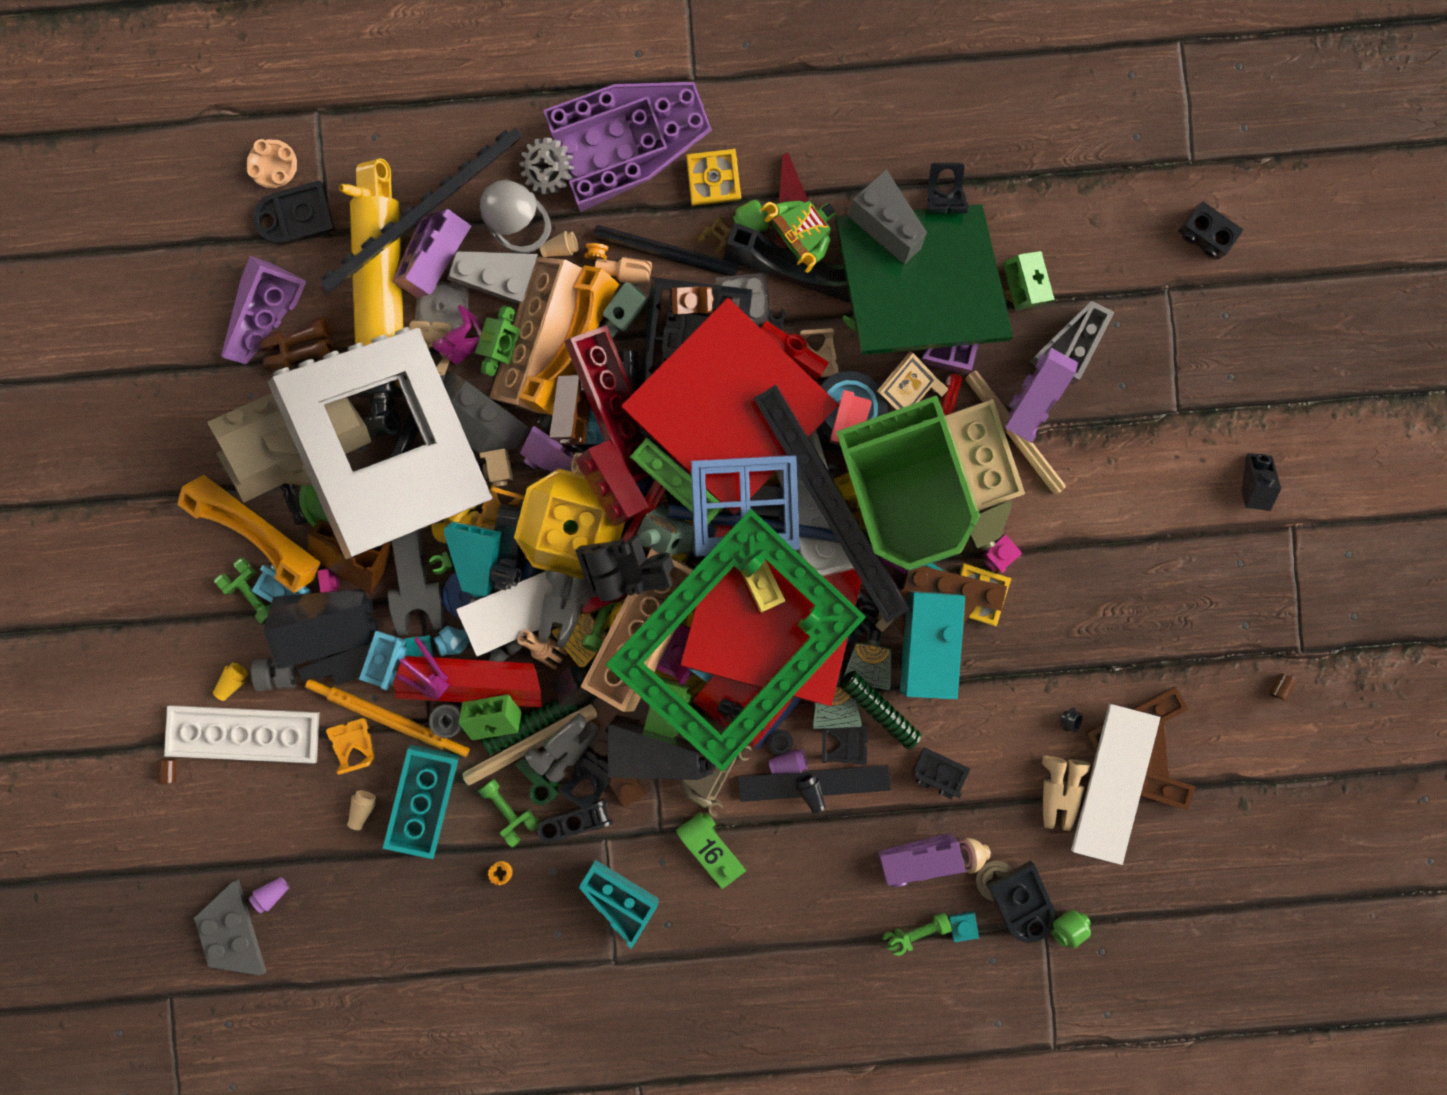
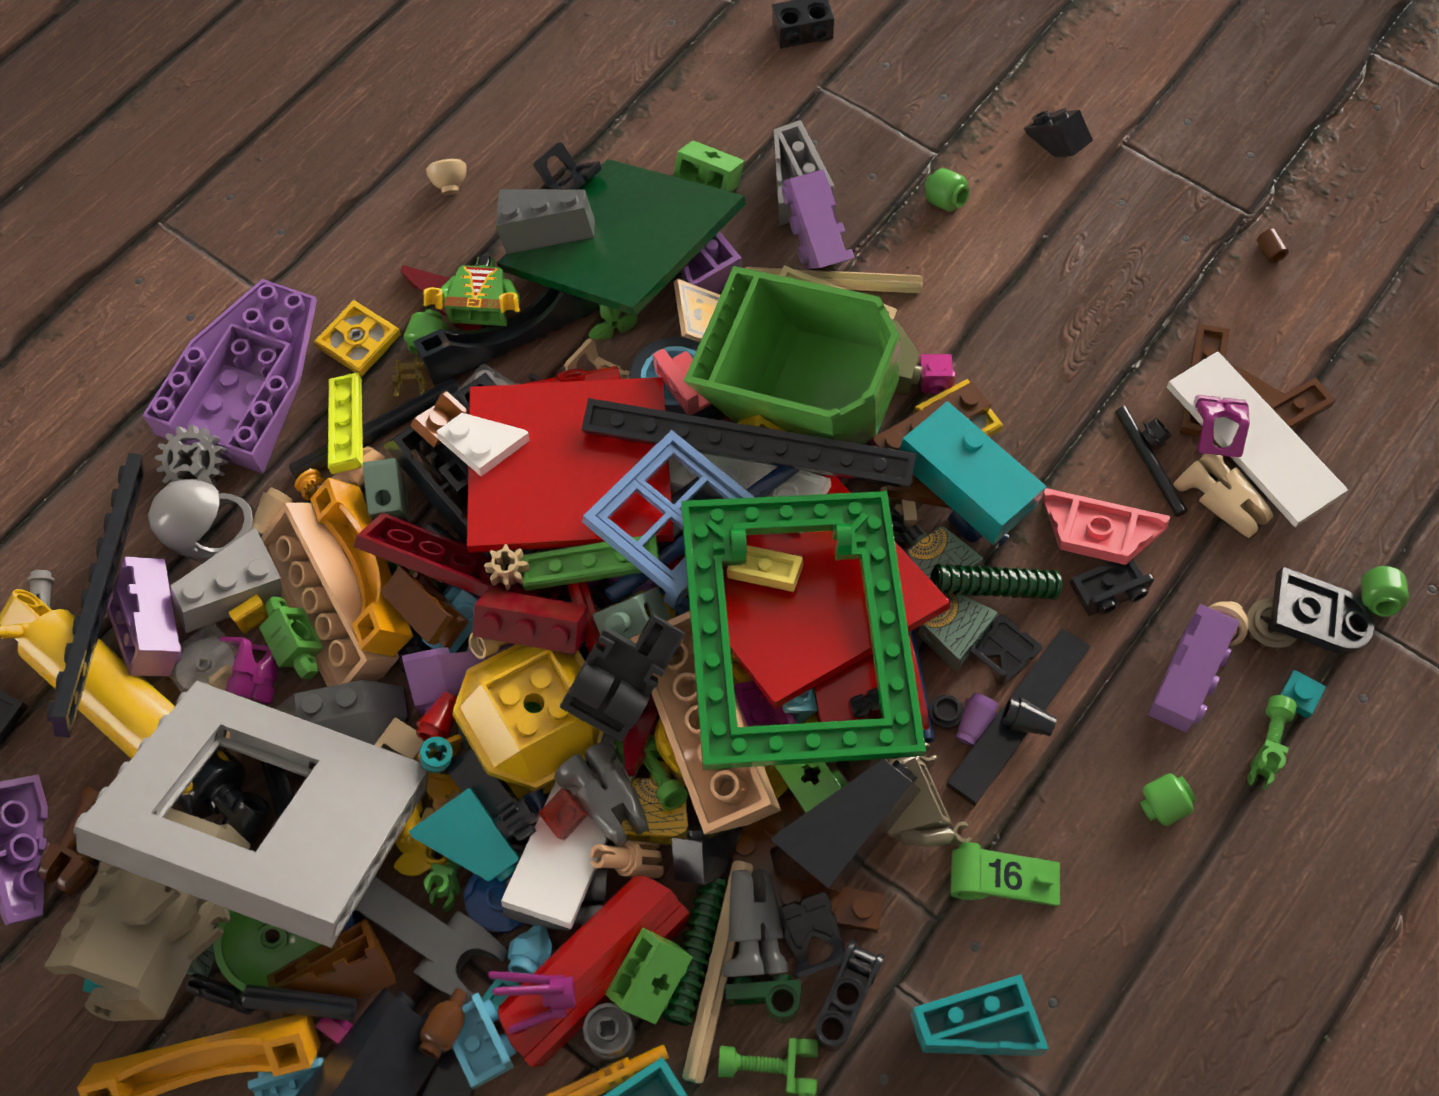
camera: 45 degrees left, 25 degrees down
(317, 555) = (299, 1002): none -> black axle
(372, 638) = (443, 1025): none -> reddish brown plant
(399, 163) = (40, 585): none -> light grey pin
(490, 301) = (249, 614): none -> yellow tile
(505, 494) = (439, 744): none -> teal bush
(522, 476) = (438, 718): none -> red cone
(530, 596) = (563, 813): none -> clear red plate
(622, 439) = (499, 562): none -> tan gear
(650, 233) = (345, 423): none -> neon yellow tile
(695, 345) = (481, 441): none -> white wing
(831, 903) = (1168, 799): none -> bright green head
(876, 114) = (447, 175): none -> tan brick
(973, 737) = (1101, 527): none -> coral wing
(1050, 730) = (1151, 461): none -> black bar
(1110, 749) = (1213, 408): none -> magenta piece
(1147, 447) = (946, 189): none -> bright green head

